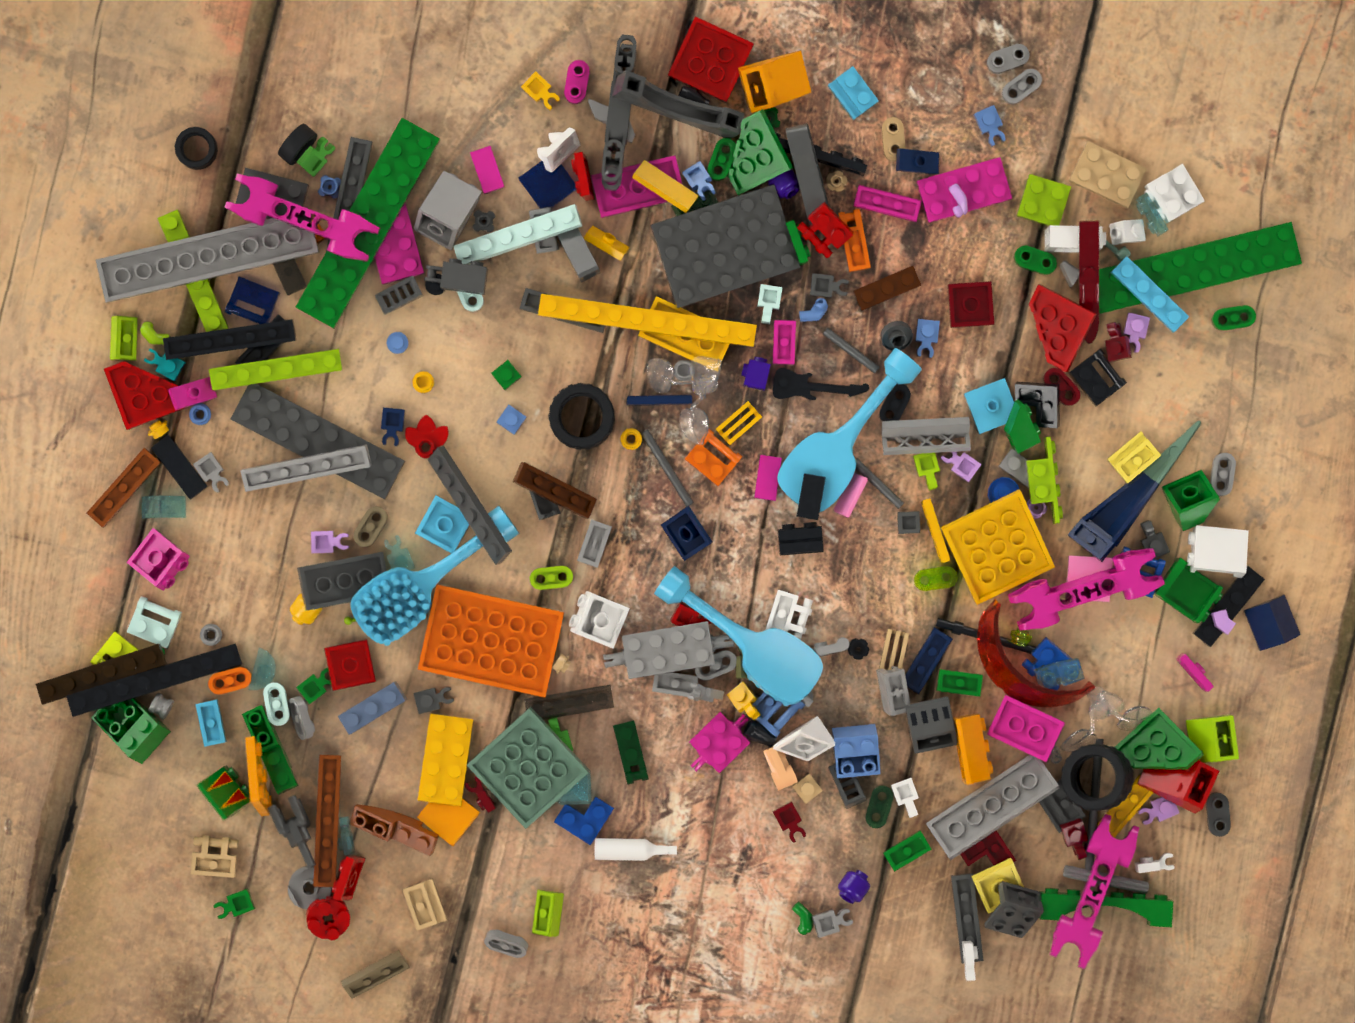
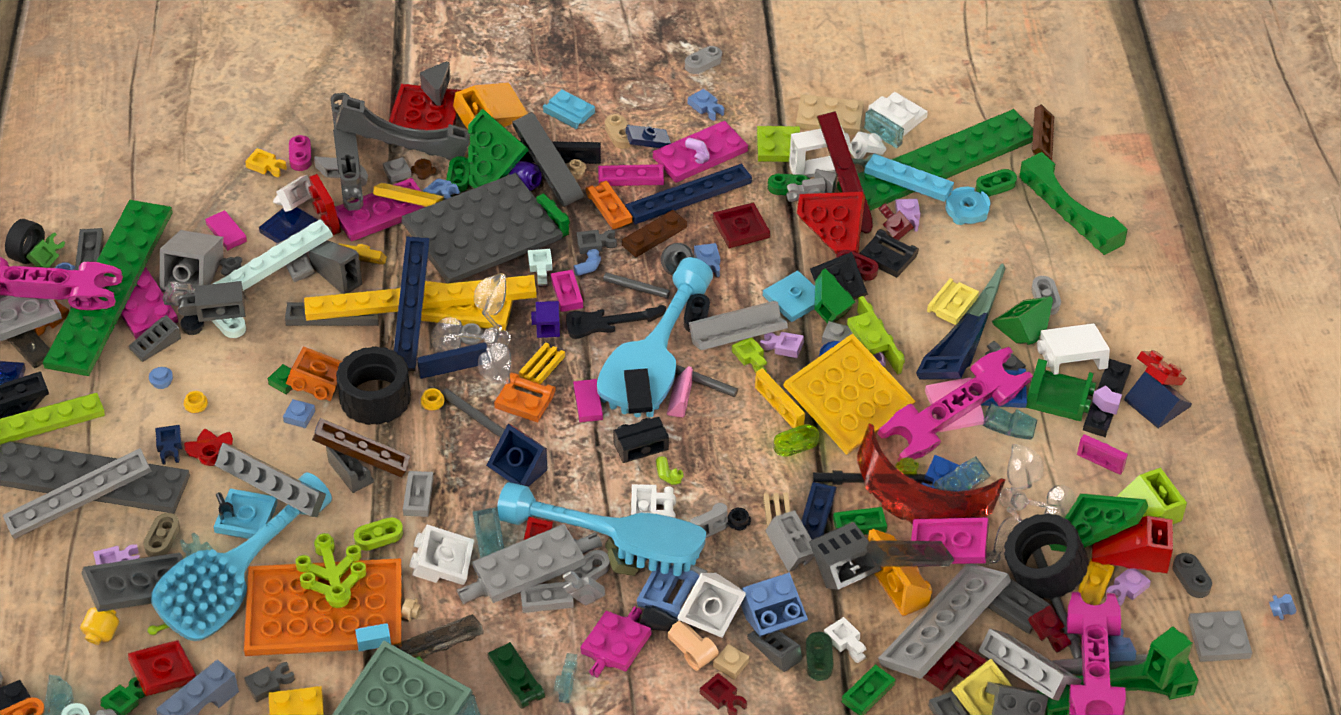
camera: 15 degrees left, 40 degrees down
(426, 515) = (224, 506): none -> black hand
(429, 255) = (174, 291): none -> clear plate
(503, 614) = (337, 593): none -> lime plant
(523, 692) = (372, 636): none -> medium azure piece
(534, 385) = (314, 374): none -> orange plate
(635, 335) = (411, 299): none -> dark blue plate
(642, 610) = (487, 531): none -> clear light blue slope
(665, 132) = (397, 170): none -> light grey plate
(667, 773) = (565, 681): none -> clear light blue plate
(691, 134) = (423, 169): none -> reddish brown plate
(727, 34) = (435, 81): none -> dark grey slope
(743, 699) = (629, 589): yellow plate -> none
(813, 581) = (666, 474): none -> lime arm
(829, 225) = (580, 188): red plate -> none
(908, 522) = (748, 401): dark grey plate -> none
(934, 248) = (689, 193): none -> dark blue plate
(980, 754) = (909, 553): none -> clear smoke plate
(1021, 87) = (723, 72): light grey plate -> none
(1039, 872) = (1027, 664): none -> light grey fence
(1051, 279) = (808, 187): none -> light grey plate
(1124, 876) = (1121, 648): none -> medium blue plate
(1130, 611) = (1014, 425): none -> clear light blue slope
(1147, 864) = (1143, 635): white plate -> none
(1150, 914) = (1167, 657): none -> green brick
(1203, 348) = (963, 214): none -> medium azure plate
(1213, 879) = (1219, 636): none -> light grey plate
(1273, 869) = (1282, 606): none -> medium blue plate
(1291, 597) = (1165, 373): none -> red plate
(1306, 266) = (1043, 131): none -> reddish brown plate
(1306, 411) = (1101, 231): none -> green arch

